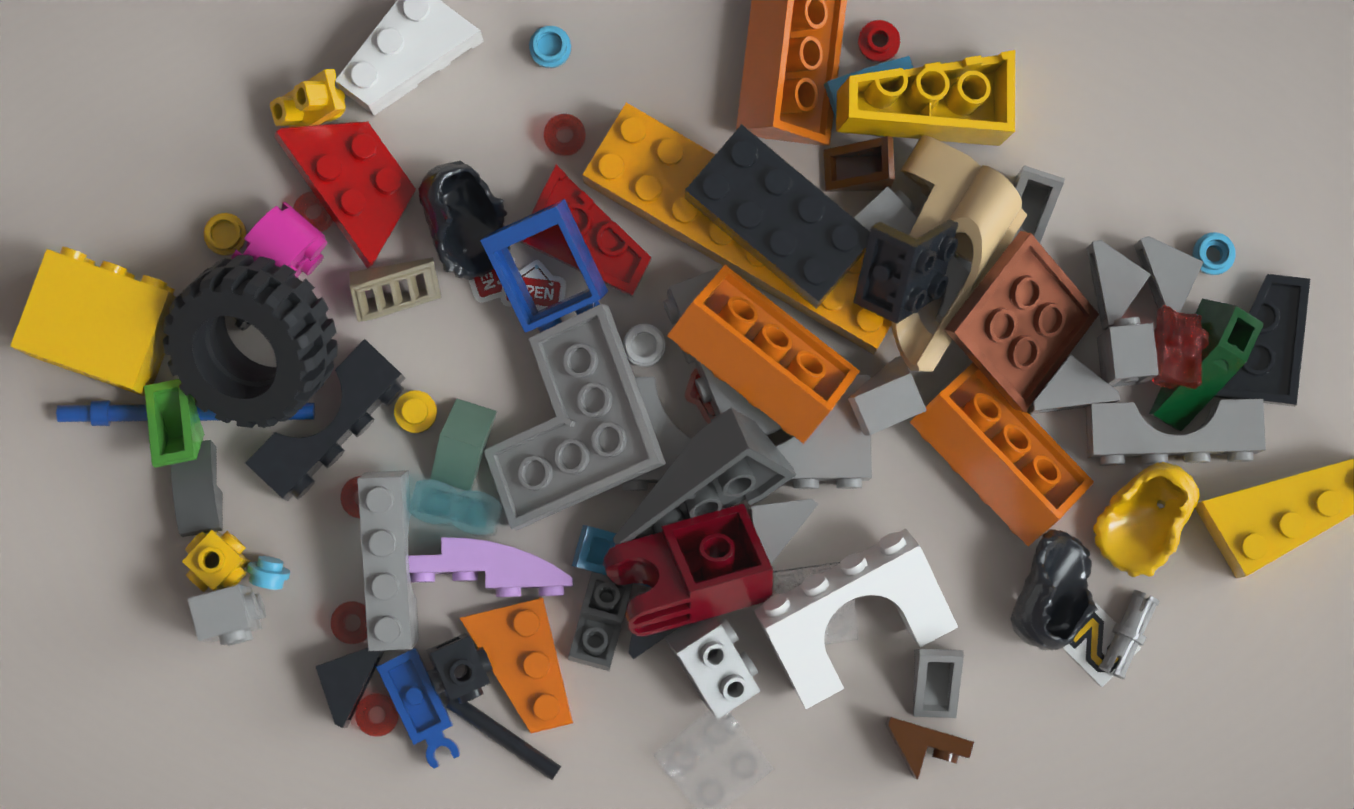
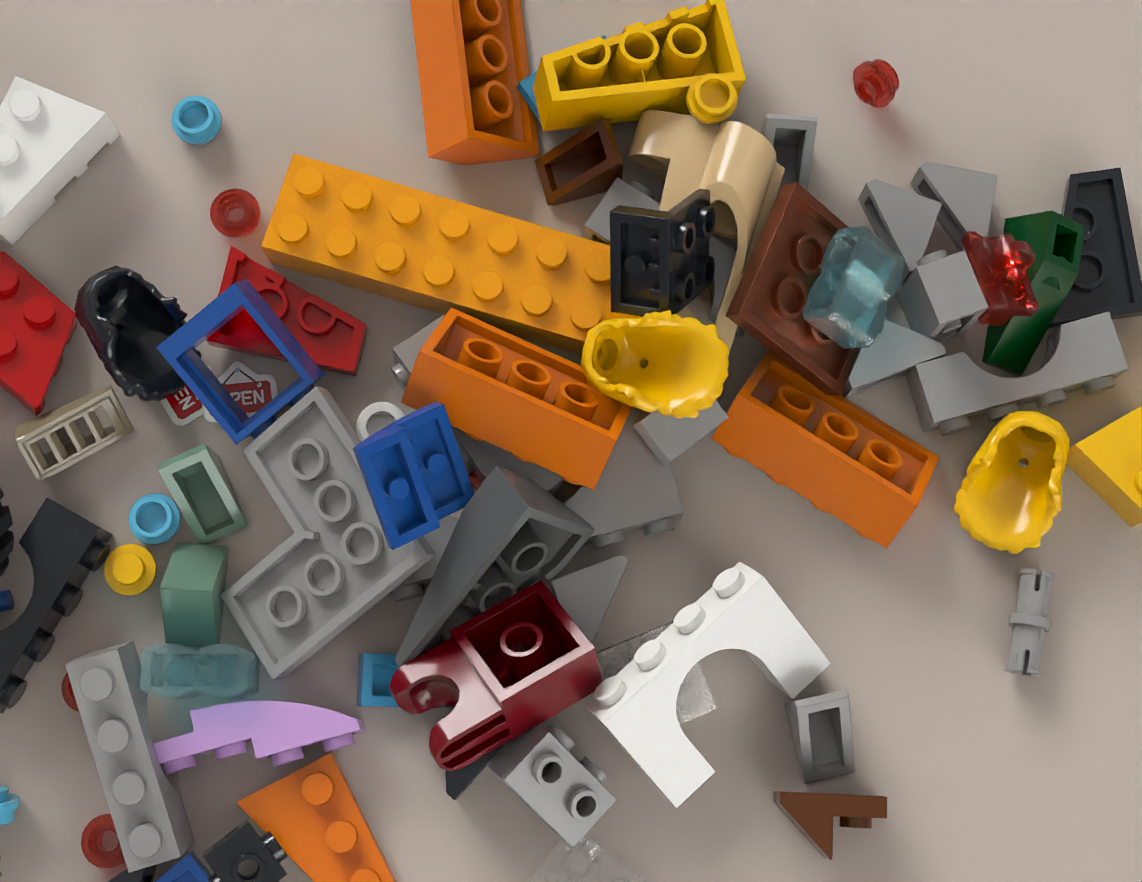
camera: 15 degrees left, 5 degrees down
(443, 375) = (154, 519): none -> medium azure plate
(488, 366) = (203, 493): none -> sand green slope
(600, 622) = (405, 765): dark grey slope -> none
(665, 397) = (414, 474): none -> blue slope
(778, 216) = (498, 233): black brick -> none
(875, 53) = (560, 38): red plate -> none
(878, 356) = (657, 363): none -> yellow piece
(981, 143) = (711, 98): none -> yellow plate
(1055, 593) = (931, 598): black piece -> none
(1056, 329) = (854, 288): none -> clear light blue brick
(1092, 645) = (985, 643): sticker -> none
(1126, 154) = (875, 82): none -> clear red plate
(1223, 245) = (1012, 159): medium azure plate -> none

